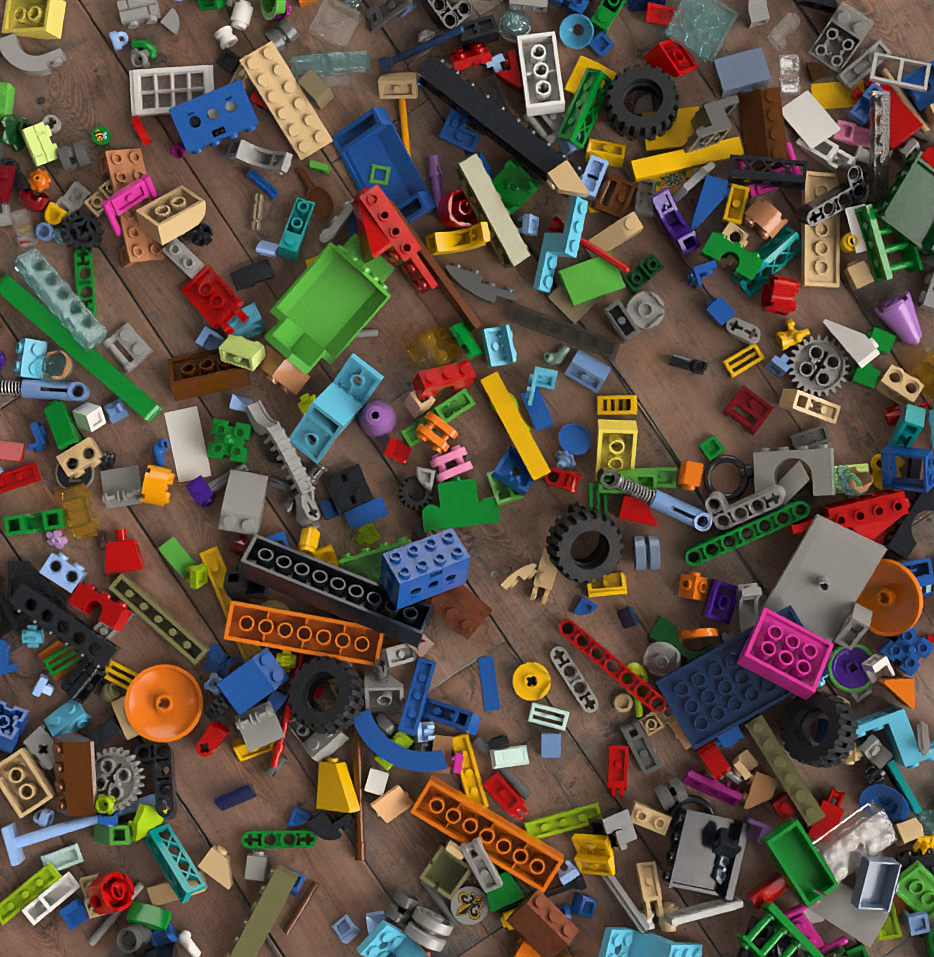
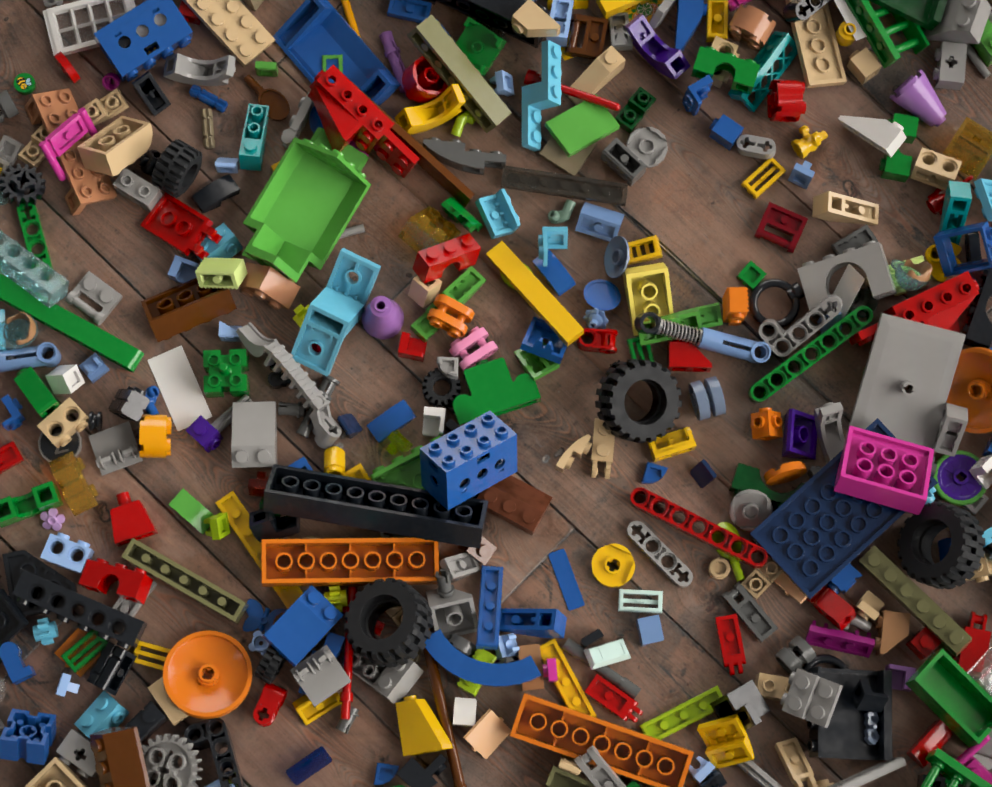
camera: 15 degrees left, 10 degrees down
(110, 692) = (143, 677): olive plate -> none
(140, 453) = (129, 403): none -> brick
(169, 174) = (106, 107): none -> tan slope
(212, 170) = (150, 93): none -> black slope
(221, 246) = (177, 168): none -> black tyre
(354, 486) = (362, 402): black brick -> none
(403, 522) = (433, 421): none -> white panel
(482, 254) = (460, 121): none -> lime arm
(595, 408) = (616, 257): none -> sand blue dish
(674, 837) = (811, 697): none -> light grey plate
(685, 363) = (715, 193): black bar -> none
(804, 357) = (863, 172): light grey gear -> none

